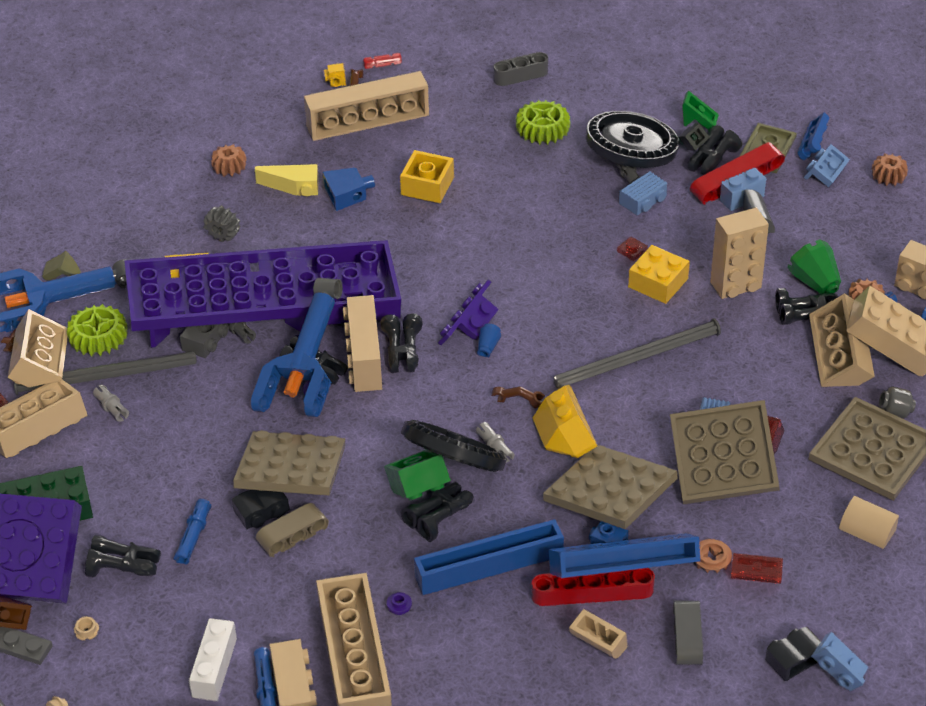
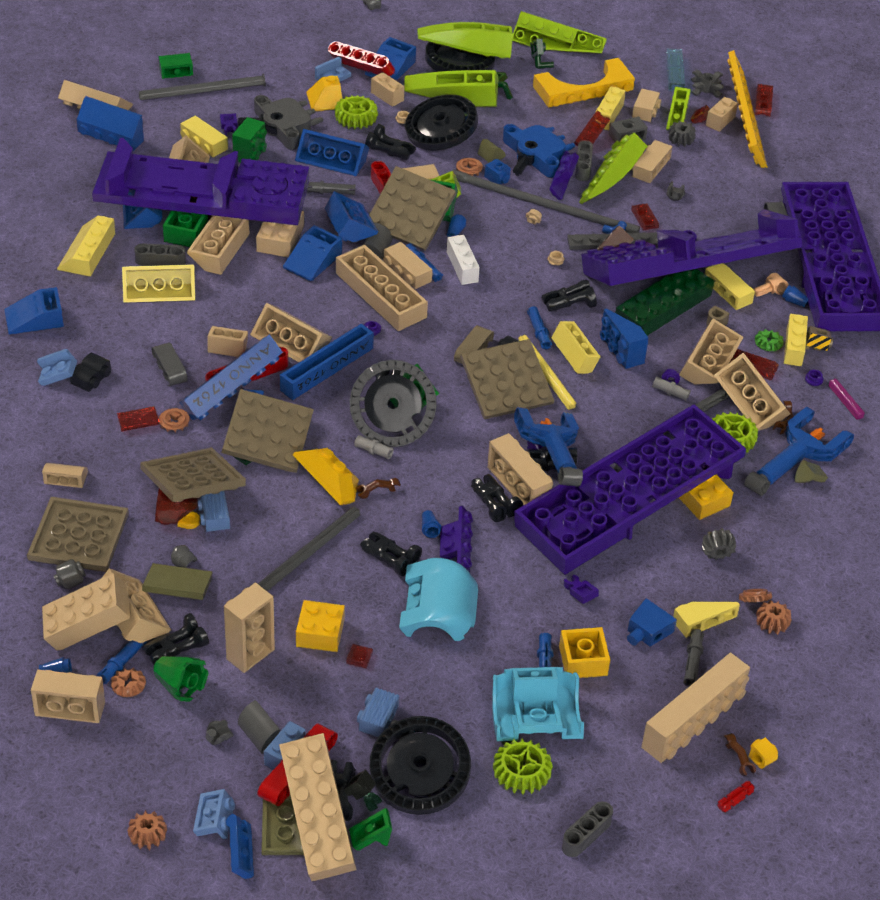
camera: 150 degrees right, 0 degrees up
(100, 414) = (671, 373): none -> dark purple plate
(118, 455) = (624, 339): none -> blue slope
(178, 476) = (575, 347): none -> light yellow brick
(223, 171) = (755, 595): none -> nougat gear
(231, 467) = (553, 380): none -> light yellow axle
(324, 158) = (694, 652): none -> dark grey pin
(383, 231) = (582, 591): none -> dark purple plate
(460, 195) = (545, 652): none -> blue pin
(504, 150) = (536, 703): none -> medium azure piece
(509, 622) = (289, 332): none -> tan slope
(531, 259) = (440, 597): none -> medium azure piece
(544, 307) = (380, 545): none -> black piece
(741, 119) = (317, 807): none -> tan brick
(765, 385) = (182, 556): none -> dark grey arm
(783, 362) = (177, 581): none -> olive tile
(796, 222) = (218, 732): none -> dark grey arm

